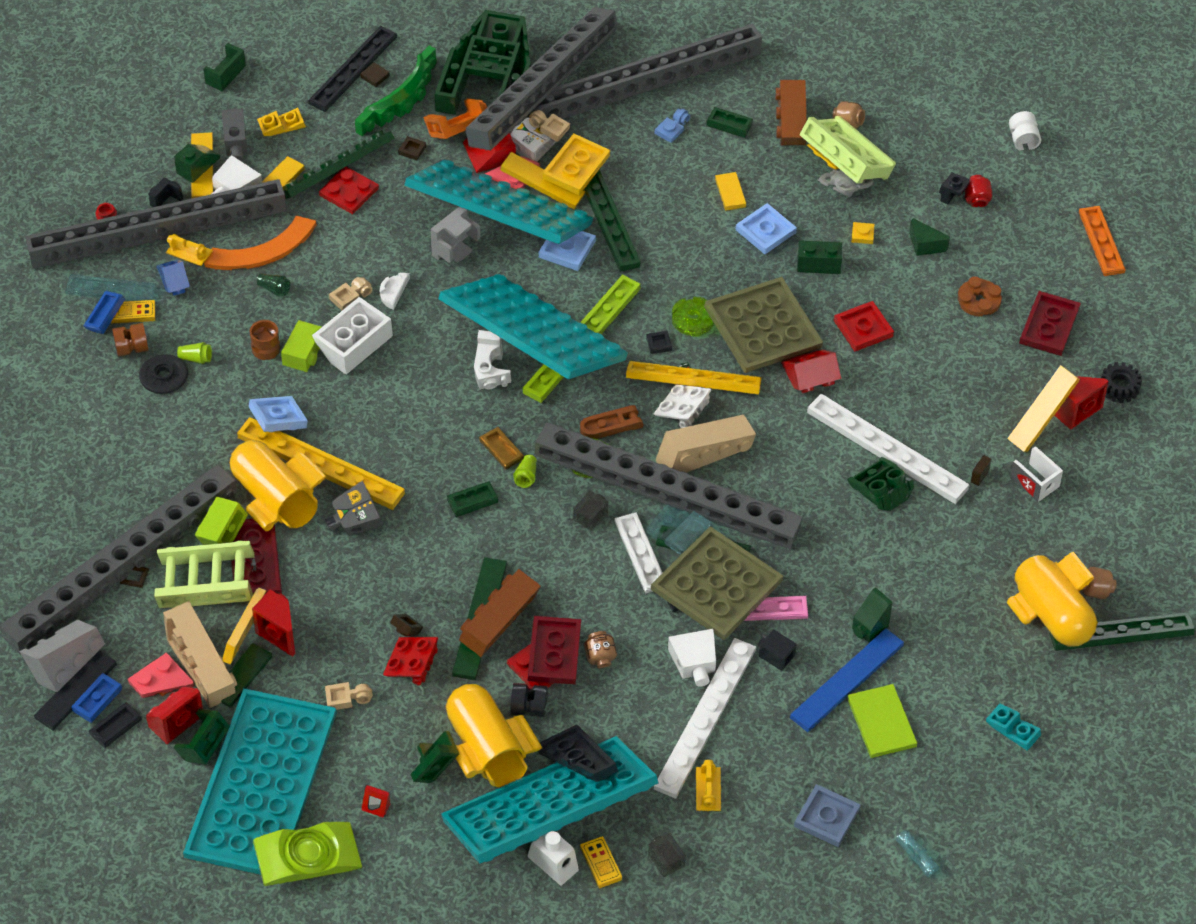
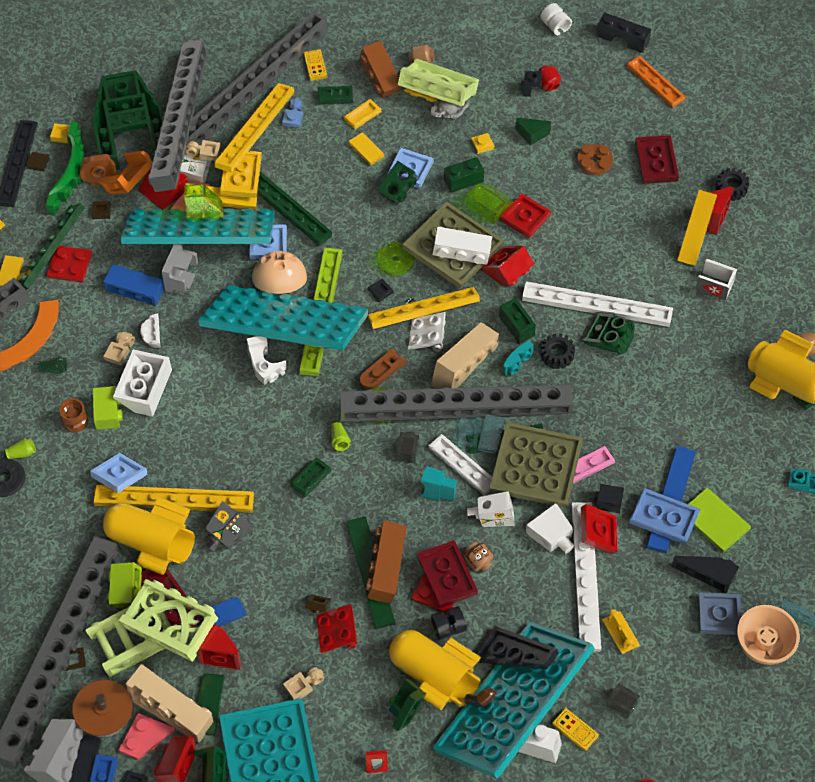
camera: 25 degrees left, 5 degrees up
(131, 631) = (102, 708): none -> dark orange piece
(239, 599) = (178, 644): none -> yellowish green fence
(242, 628) = (194, 674): yellow tile -> none
(306, 593) = (228, 611): none -> blue tile
(401, 235) = (134, 285): none -> blue brick
(410, 53) = (59, 133): none -> yellow plate
(429, 95) = (91, 164): none -> dark orange plate
(501, 448) = (308, 425): pearl gold tile -> none
(515, 176) = (202, 202): none -> clear neon green slope
(516, 785) = (481, 699): none -> reddish brown arm
(558, 280) = (279, 273): none -> light nougat piece
(597, 559) = (438, 485): none -> teal piece
(617, 121) = (254, 127): none -> yellow plate
(643, 609) = (493, 510): none -> white torso
(727, 83) = (315, 65): none -> yellow tile
(736, 234) = (393, 181): none -> dark green brick
(745, 674) = (599, 529): none -> red plate
(748, 153) = (362, 114): none -> yellow tile
(754, 471) = (513, 362): none -> teal slope
(768, 327) = (462, 245): none -> white brick
(786, 429) = (517, 320): none -> dark green panel
(816, 468) = (554, 360): none -> black tyre
(826, 692) = (664, 516): none -> medium blue tile
(830, 295) = (488, 202): none -> clear neon green slope
(842, 767) = (710, 570): none -> black slope
(856, 844) = (774, 628): none -> light nougat piece
(872, 616) = (665, 441): dark green slope -> none
(981, 470) = (674, 295): dark brown tile -> none
(1105, 181) = (634, 34): none -> black arch

